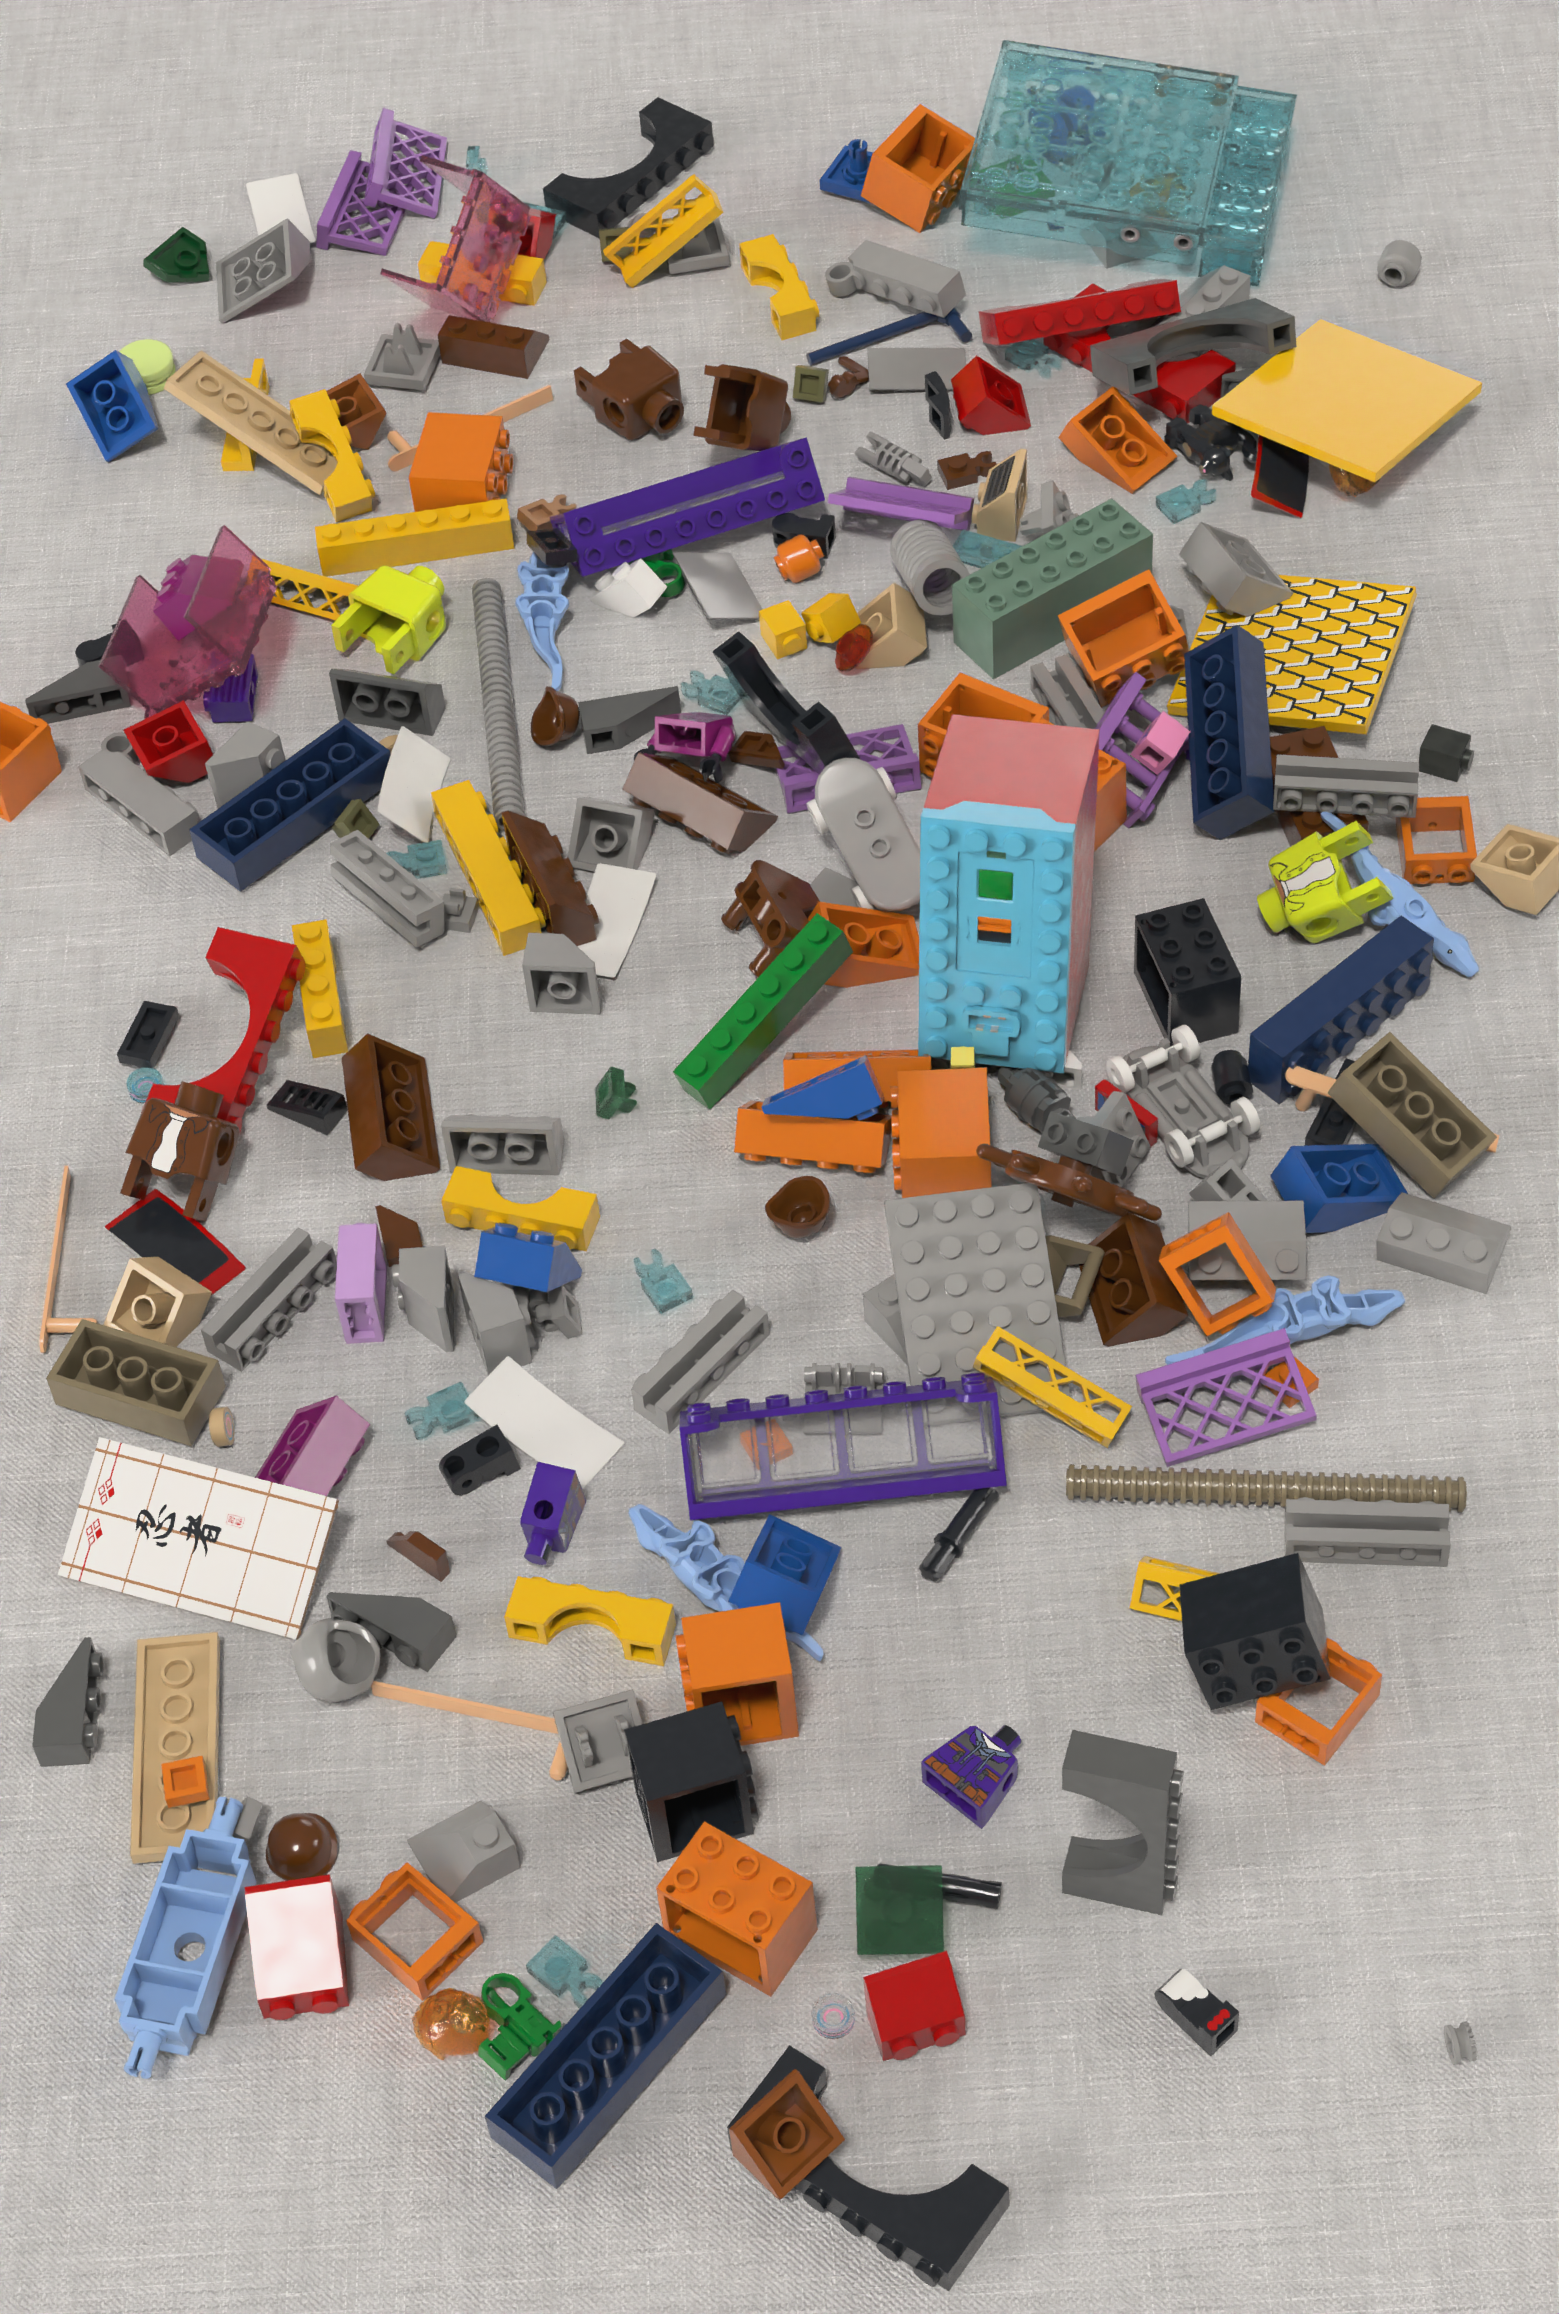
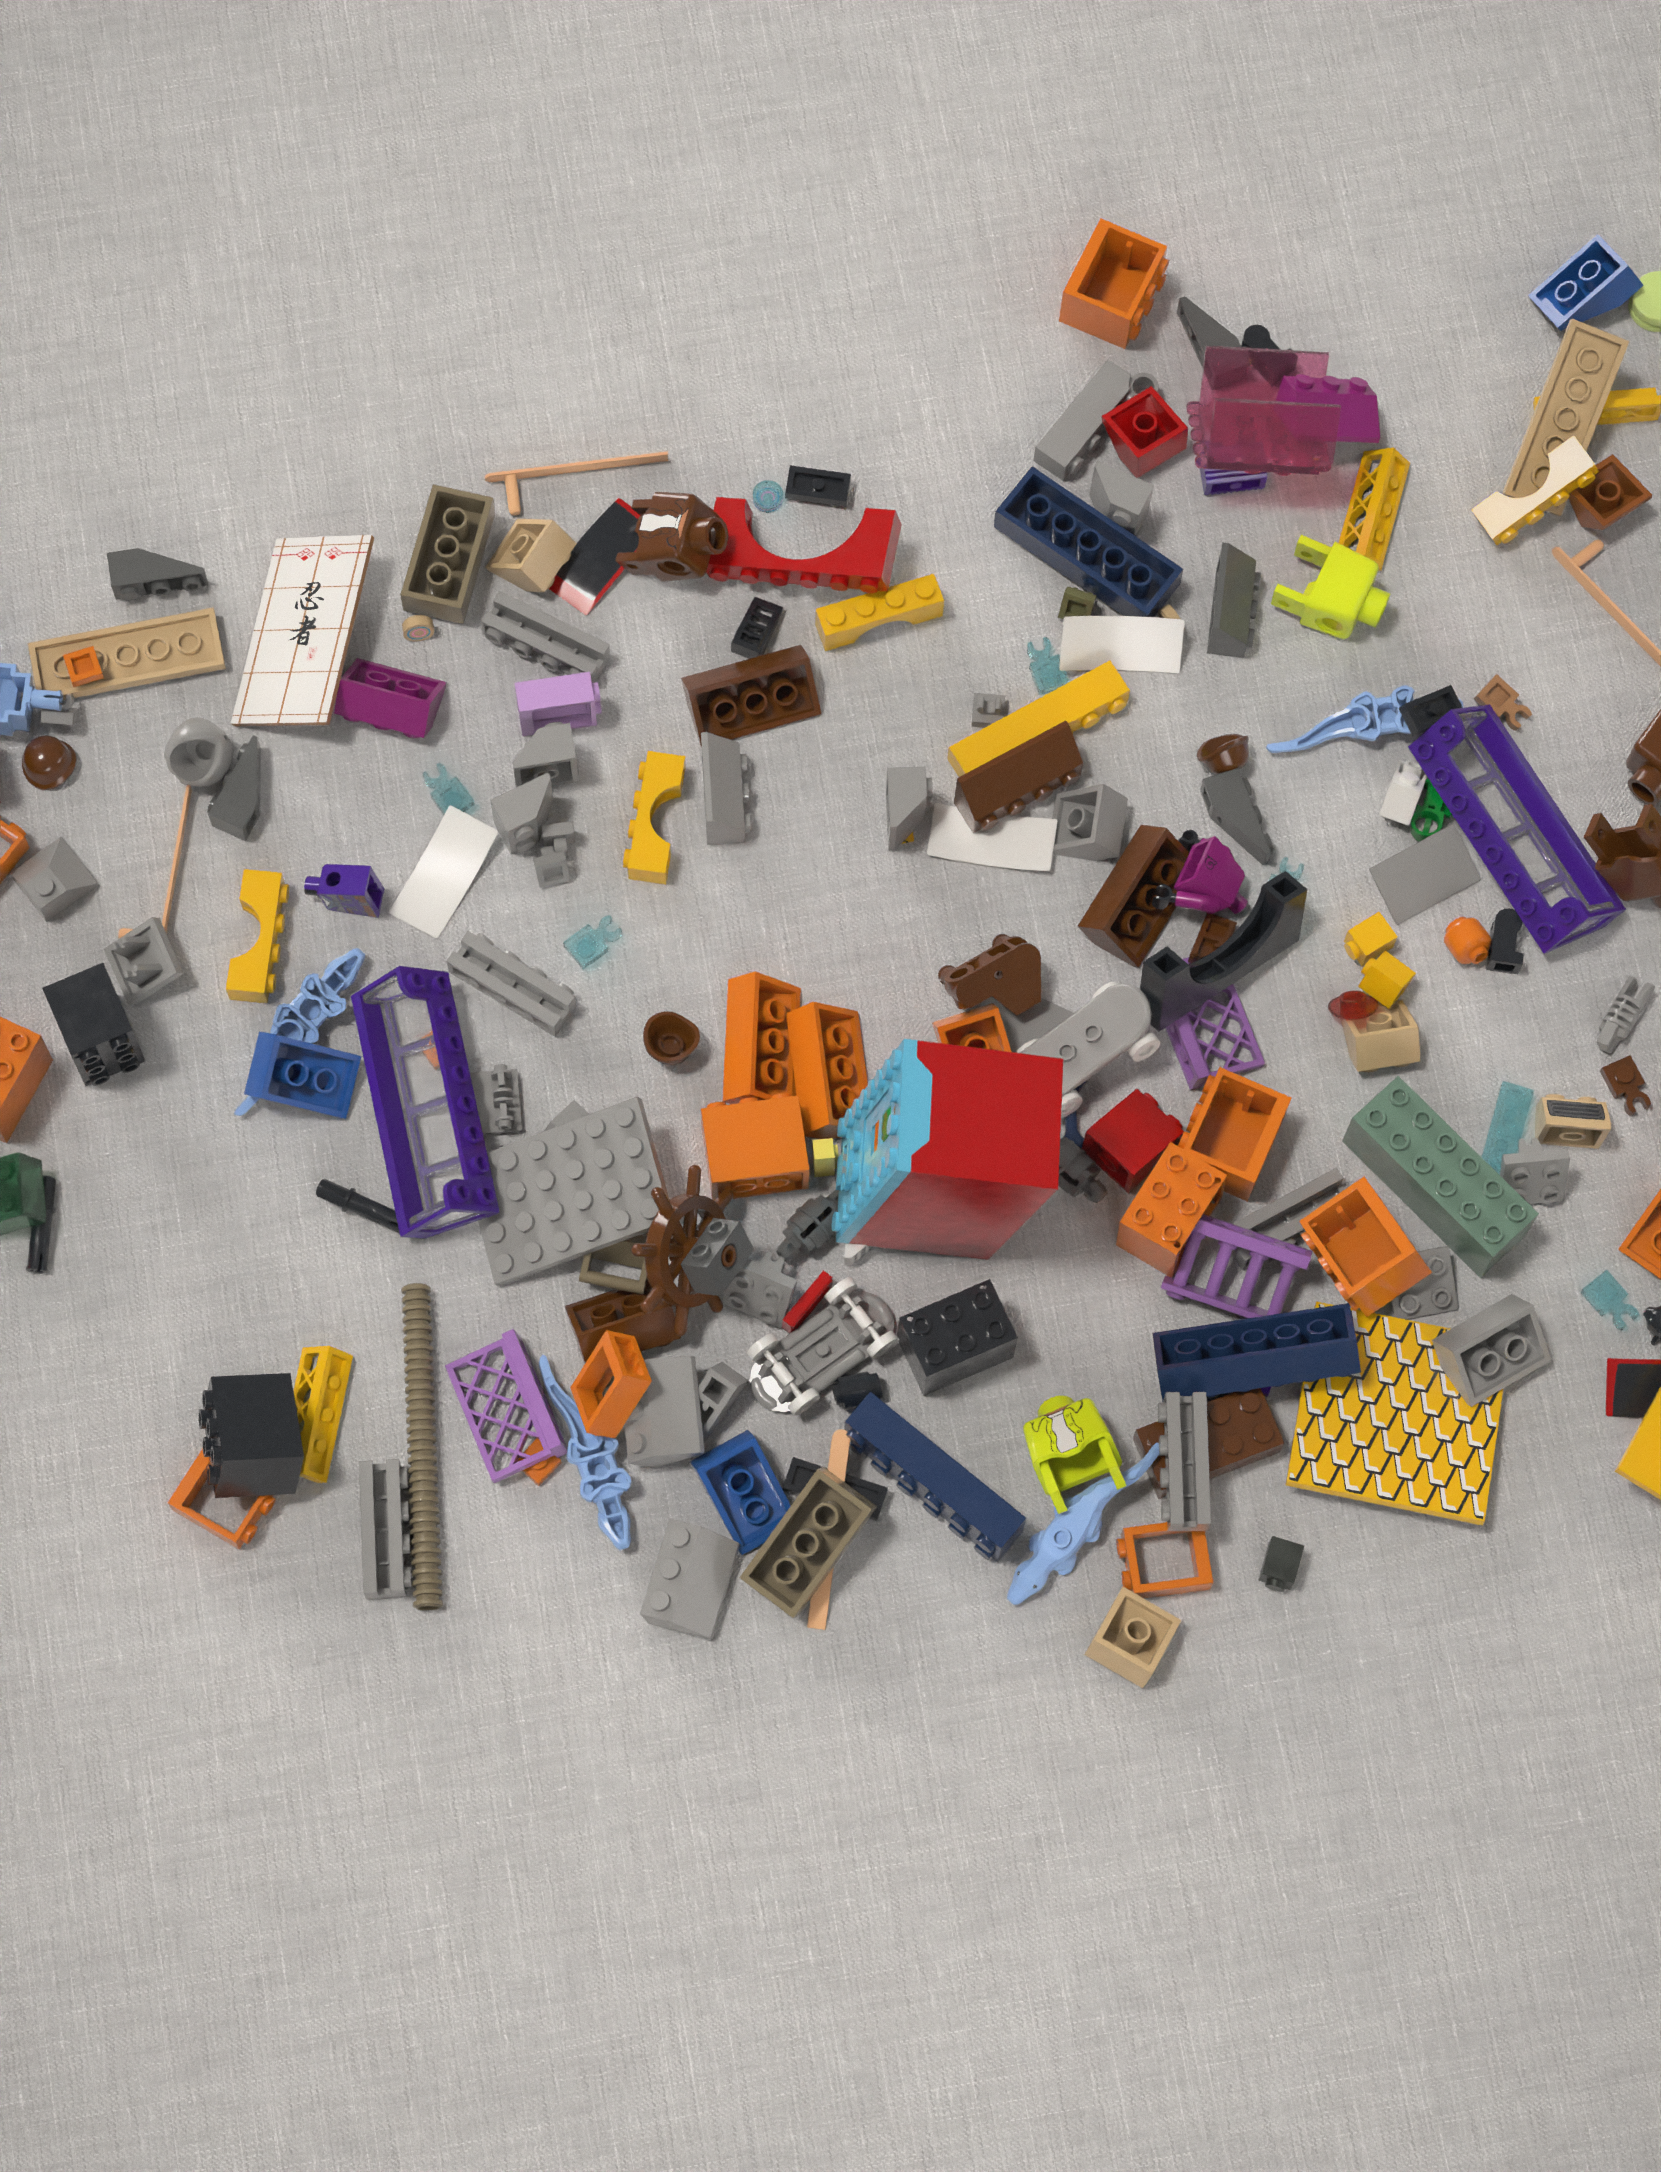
camera: 75 degrees right, 20 degrees up
(387, 888) = (995, 644): light grey brick -> none
(397, 1233) = (624, 728): reddish brown tile -> none
(414, 537) = (1448, 589): yellow brick -> none
(421, 1552) = (312, 798): reddish brown tile -> none
(460, 461) = (1536, 611): orange container -> none
(478, 1461) = (400, 829): black leg -> none
(497, 699) = (1244, 700): light grey piece -> none
(525, 1259) = (575, 826): blue slope -> none
(612, 1094) = (788, 870): clear green tile -> none
(744, 1664) = (188, 1048): orange container -> none
(763, 1011) = (871, 979): green brick -> none
(834, 1094) = (775, 1043): blue slope -> none
(904, 503) = (1557, 1027): medium lavender fence -> none
(927, 564) = (1450, 1058): light grey piece -> none
(974, 1771) = (138, 1241): torso -> none
(1047, 1394) = (484, 1257): yellow fence -> none
(1146, 1790) = (39, 1340): dark grey arch -> none
(1160, 743) = (1239, 1292): bright pink brick -> none

